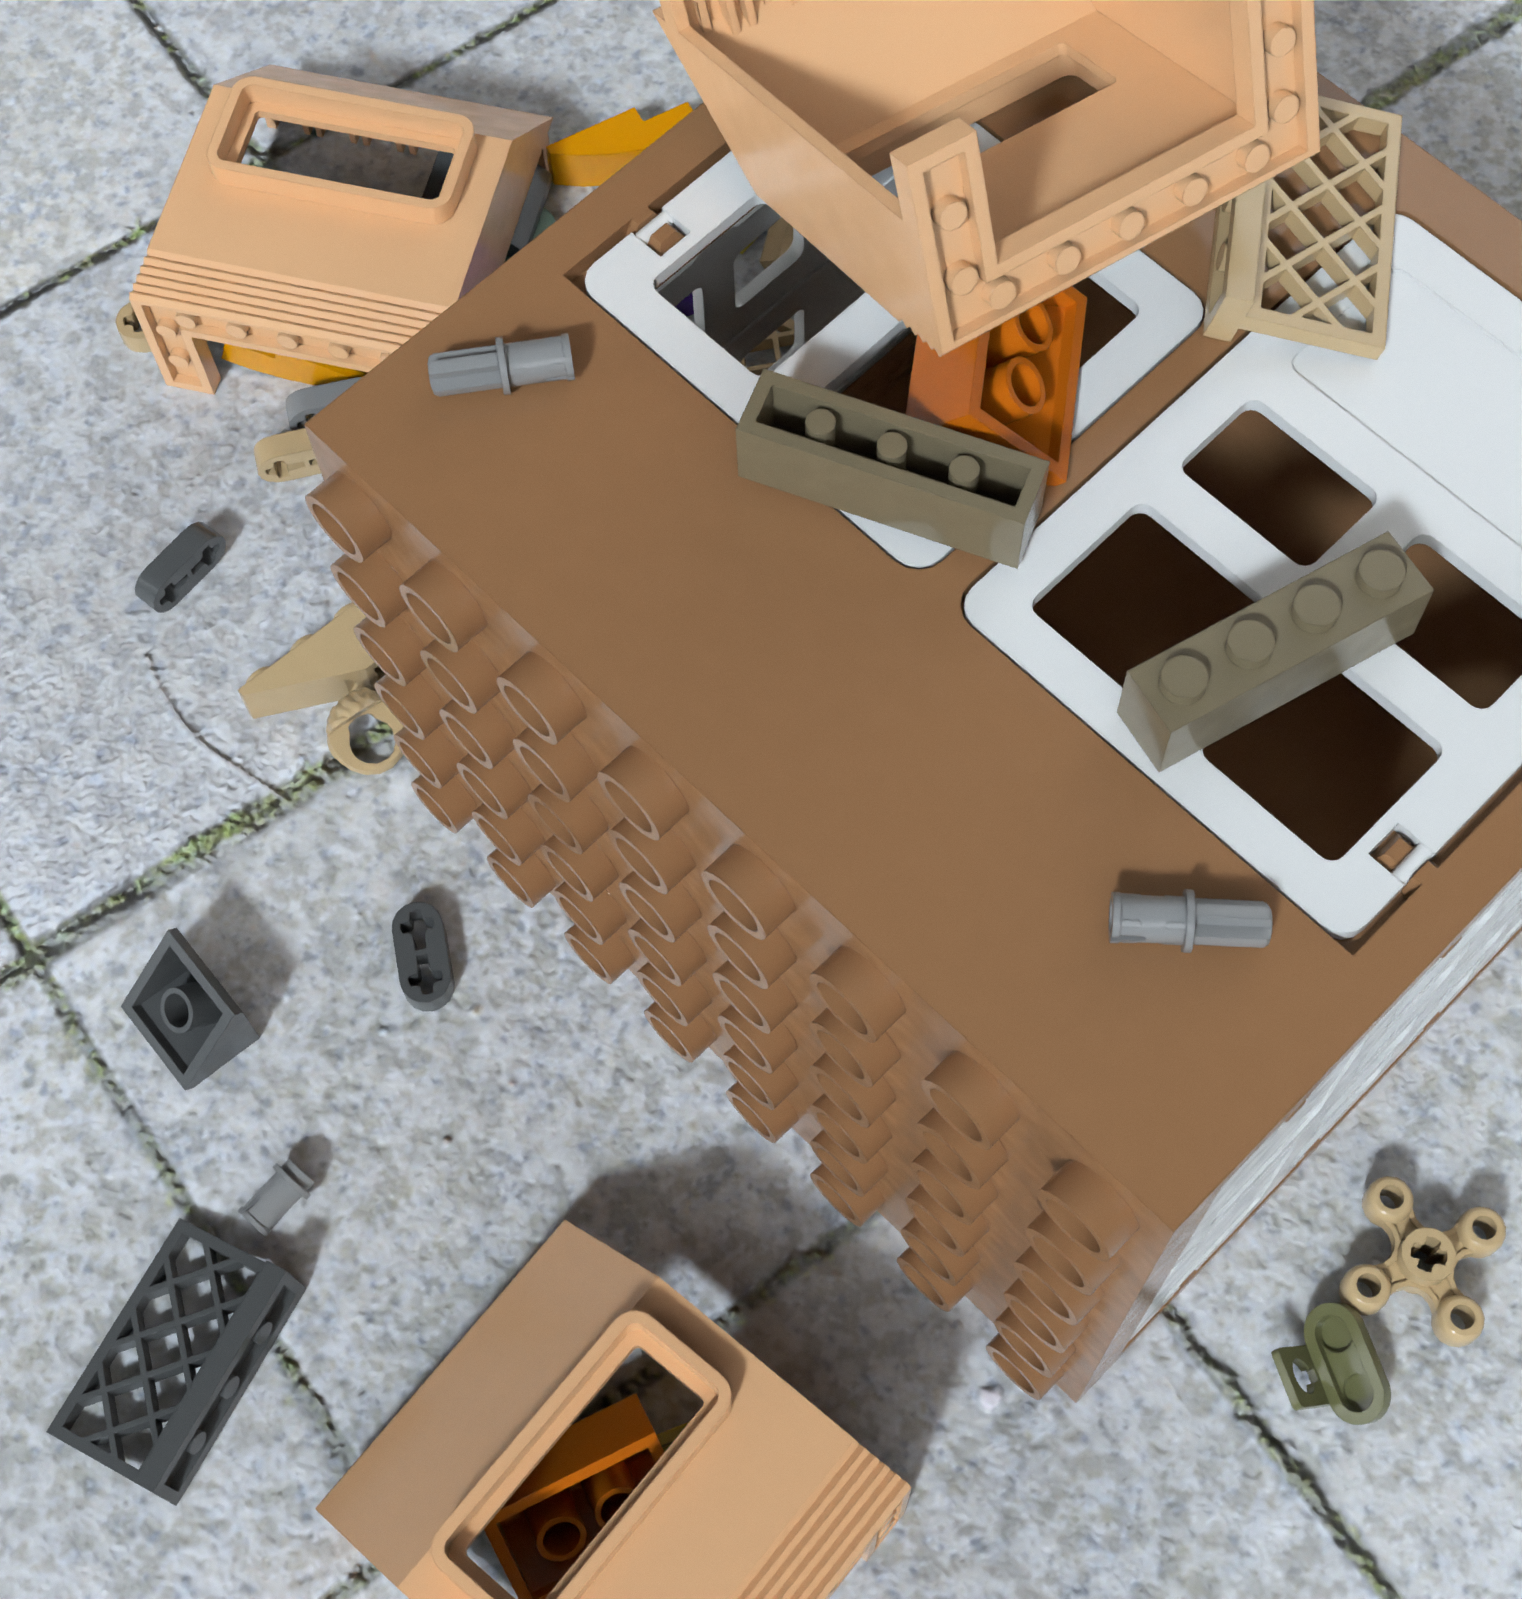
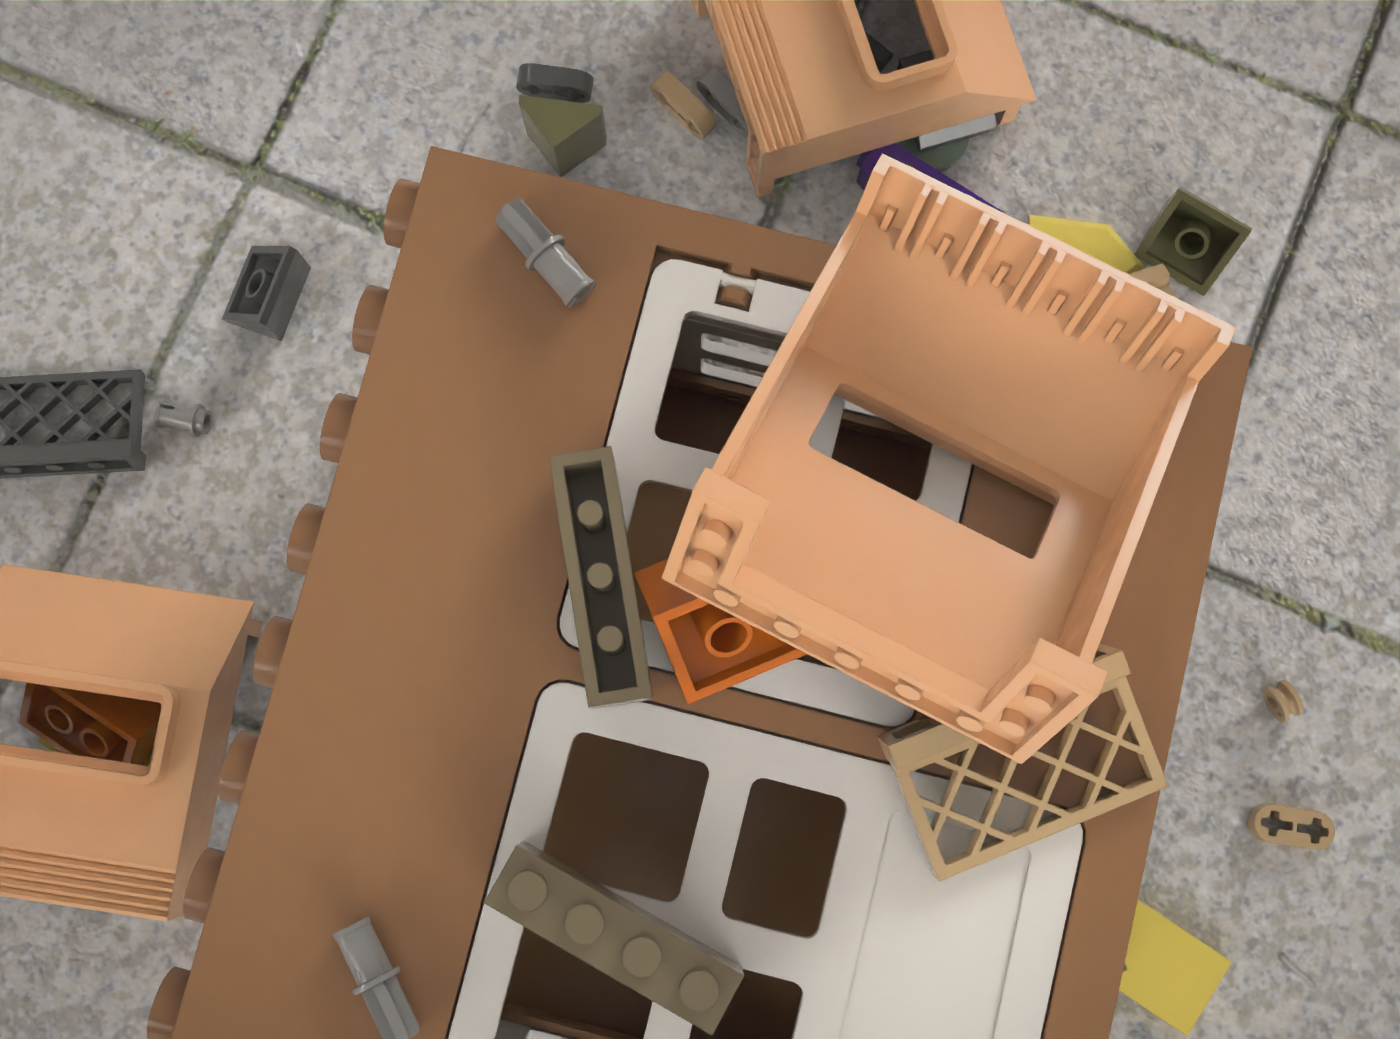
camera: 55 degrees right, 15 degrees up
(242, 580) = (563, 130): none -> olive slope
(606, 147) = (1050, 166): light orange slope -> none

